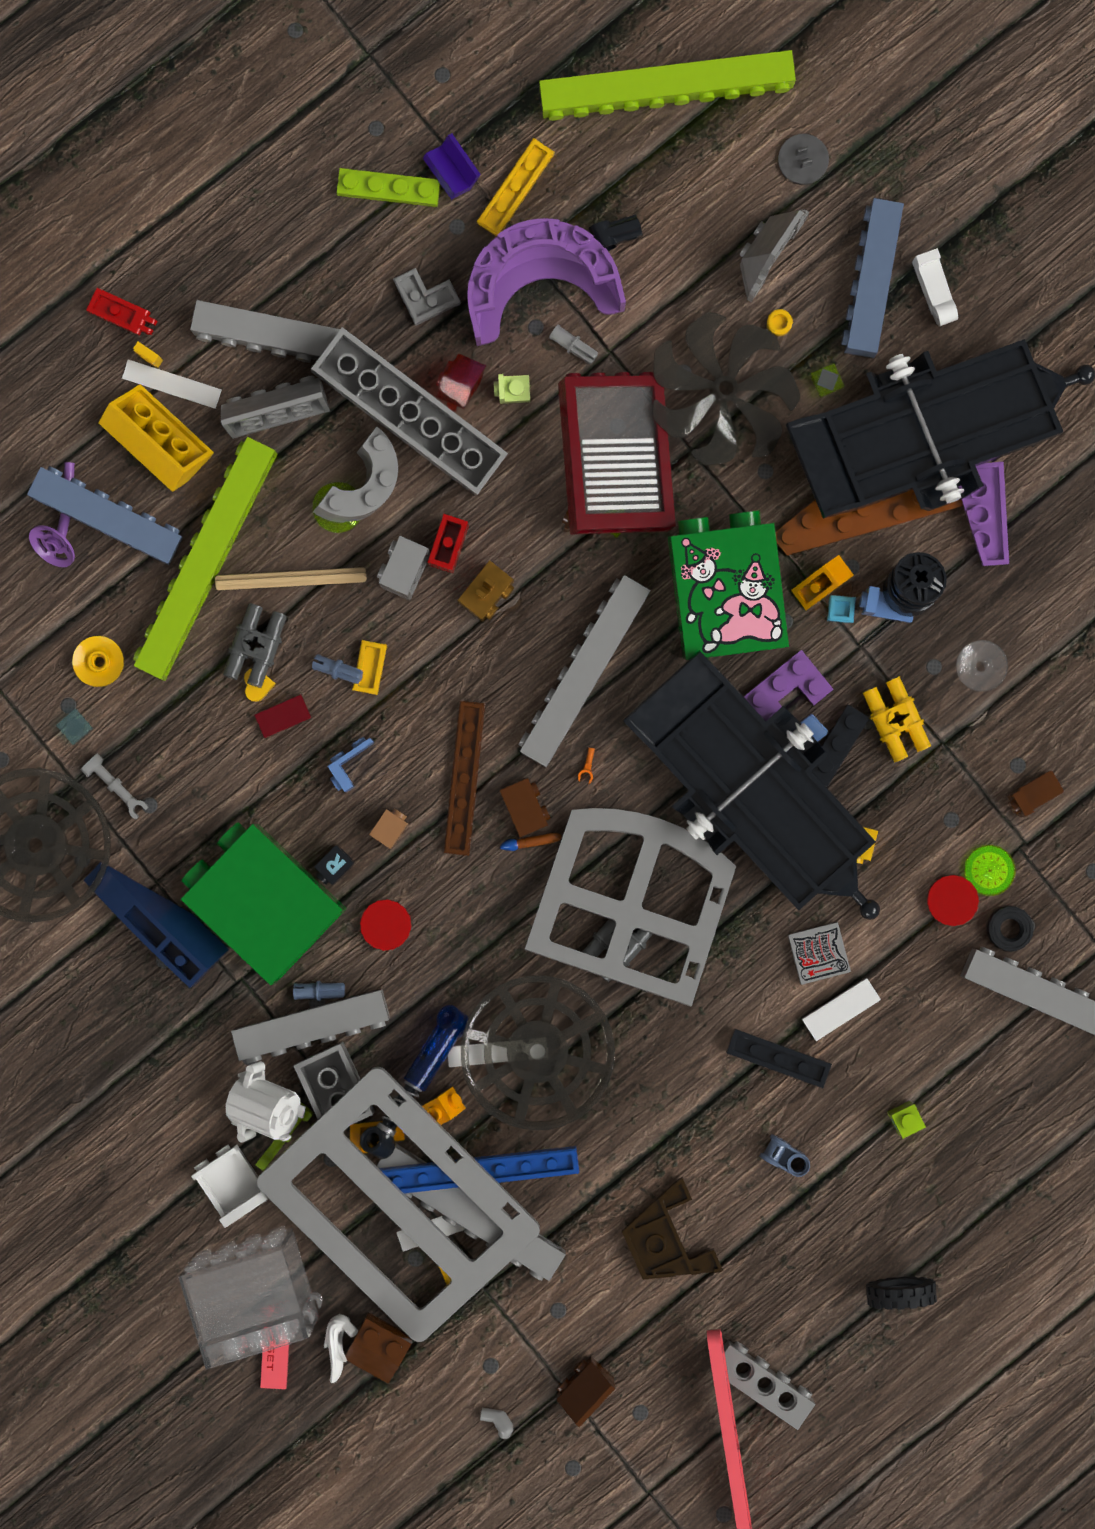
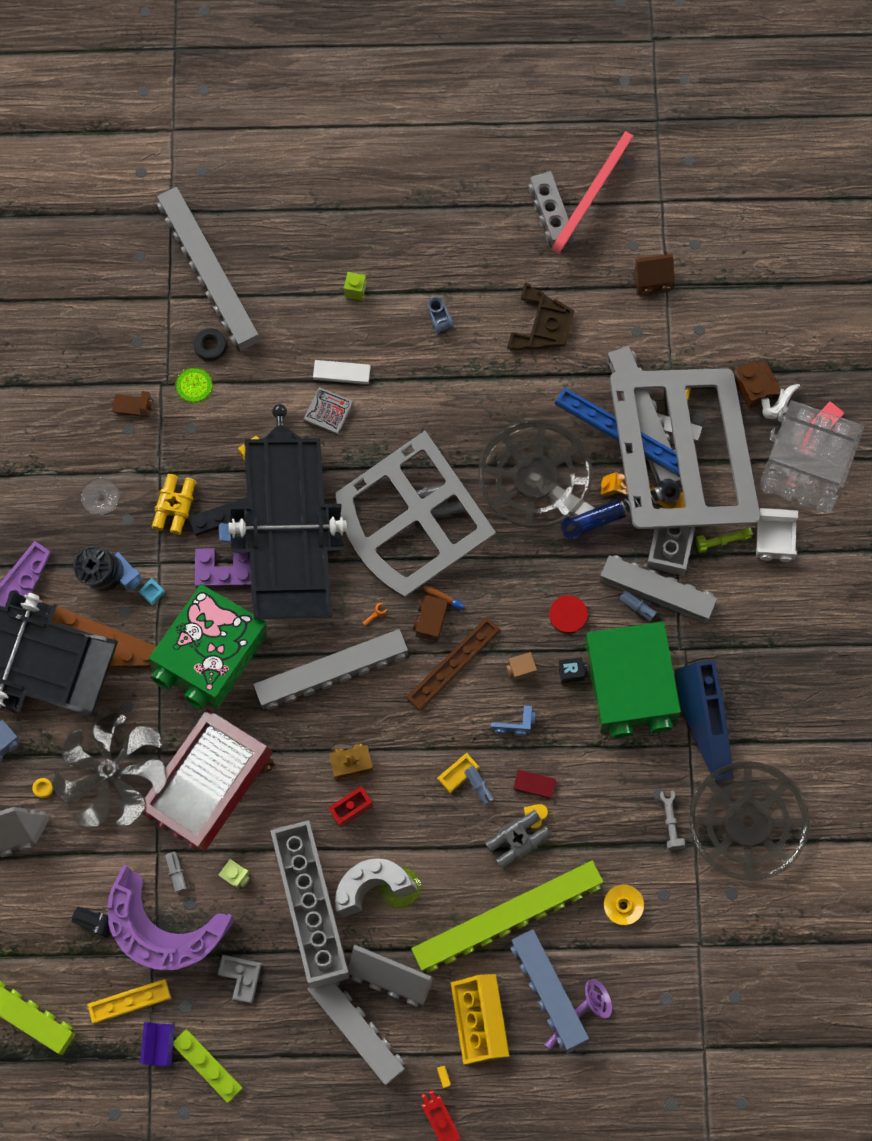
camera: 140 degrees left, 15 degrees down
(74, 726) = (669, 877): clear light blue tile -> none
(171, 384) = (443, 1049): white sticker -> none
(262, 1106) = (722, 560): white container -> none
(290, 578) = (464, 864): tan axle -> none
(404, 567) = (389, 811): light grey brick -> none
(459, 381) = (262, 899): clear red brick -> none
(500, 1420) = (715, 297): light grey arm -> none
(778, 1058) = (399, 371): black plate -> none
(822, 582) = (149, 613): light orange slope -> none
(827, 380) = (45, 731): tile -> none
(901, 1293) = (434, 197): black tyre -> none
(952, 900) = (228, 383): red tile -> none

